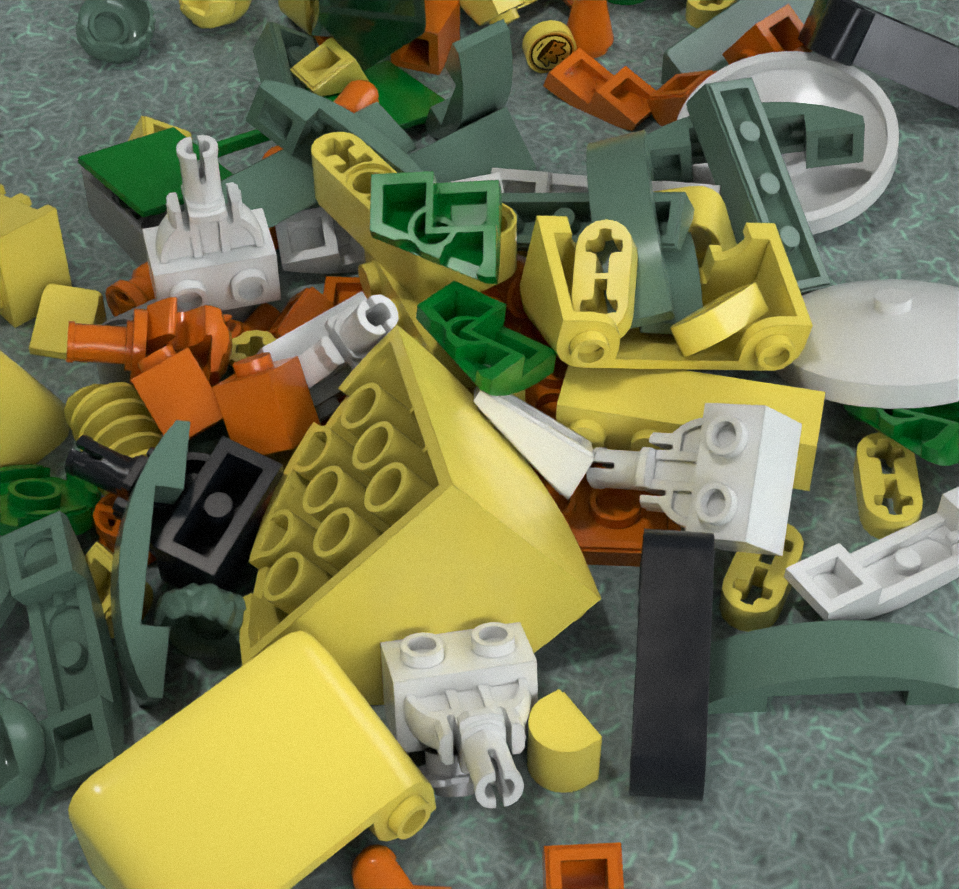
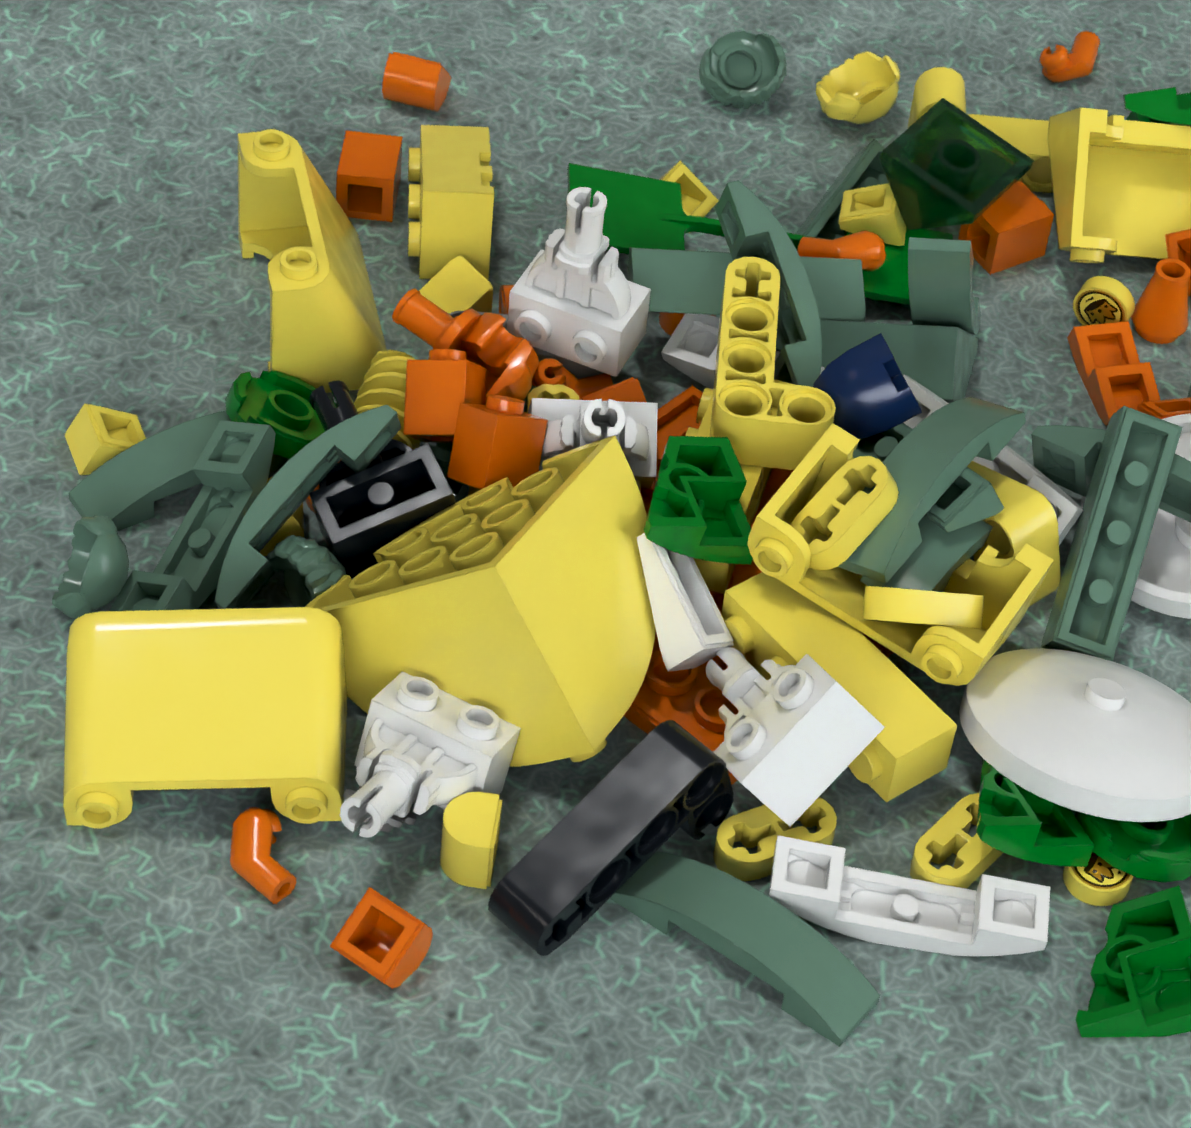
camera: 35 degrees right, 0 degrees up
(440, 221) = (755, 382): green slope -> none
(525, 181) = (868, 389): none -> dark blue brick

